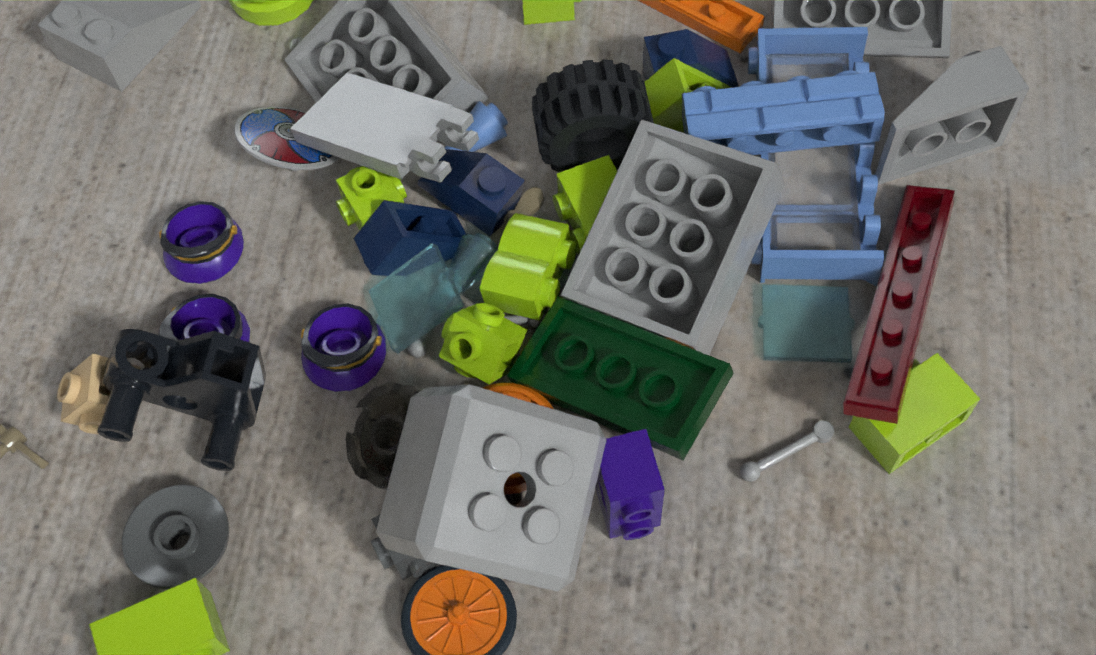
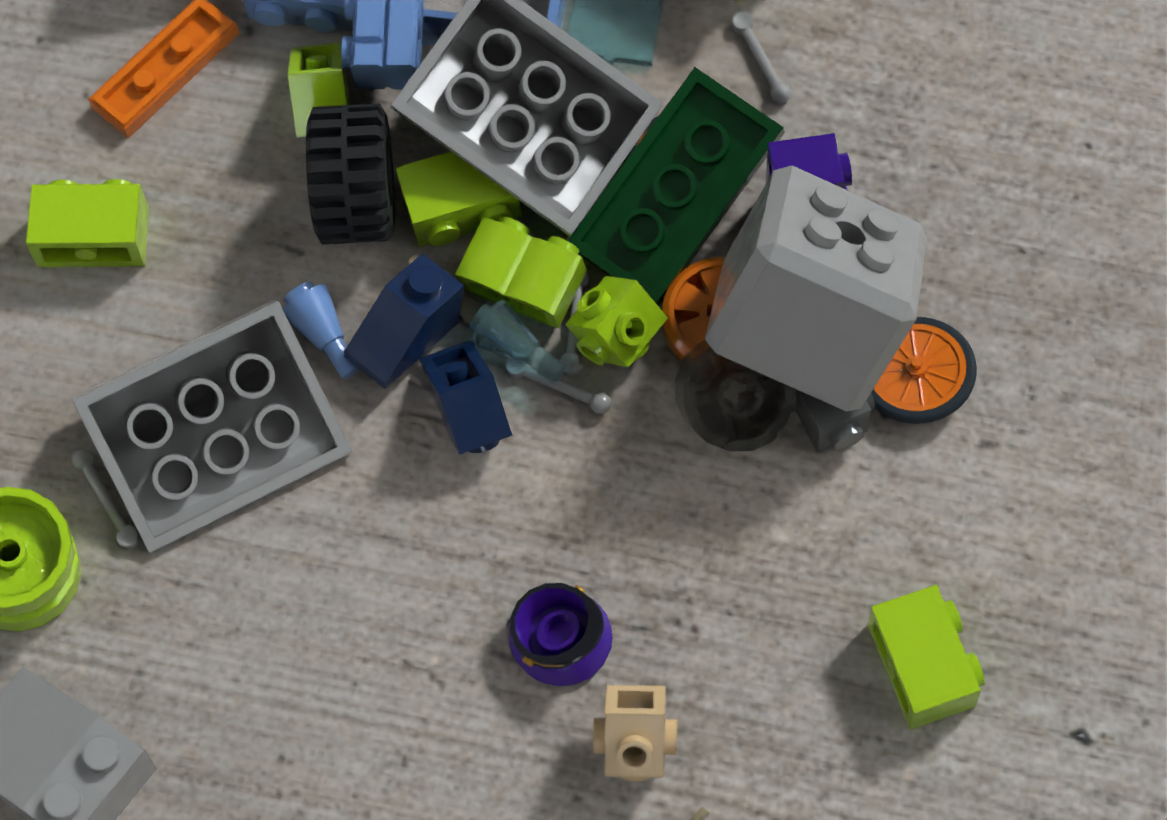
camera: 85 degrees left, 5 degrees up
(161, 520) = (816, 620): dark grey dish -> none
(201, 242) = (426, 644): dark purple piece -> none
(210, 368) = (638, 607): black piece -> none
(268, 137) = (294, 531): shield -> none
(342, 348) = (592, 480): dark purple piece -> none
(363, 193) = (409, 432): lime brick -> none
(385, 128) = (325, 398): light grey tile -> none
(415, 298) = (546, 392): clear light blue piece -> none
(691, 50) = (263, 89): dark blue slope -> none

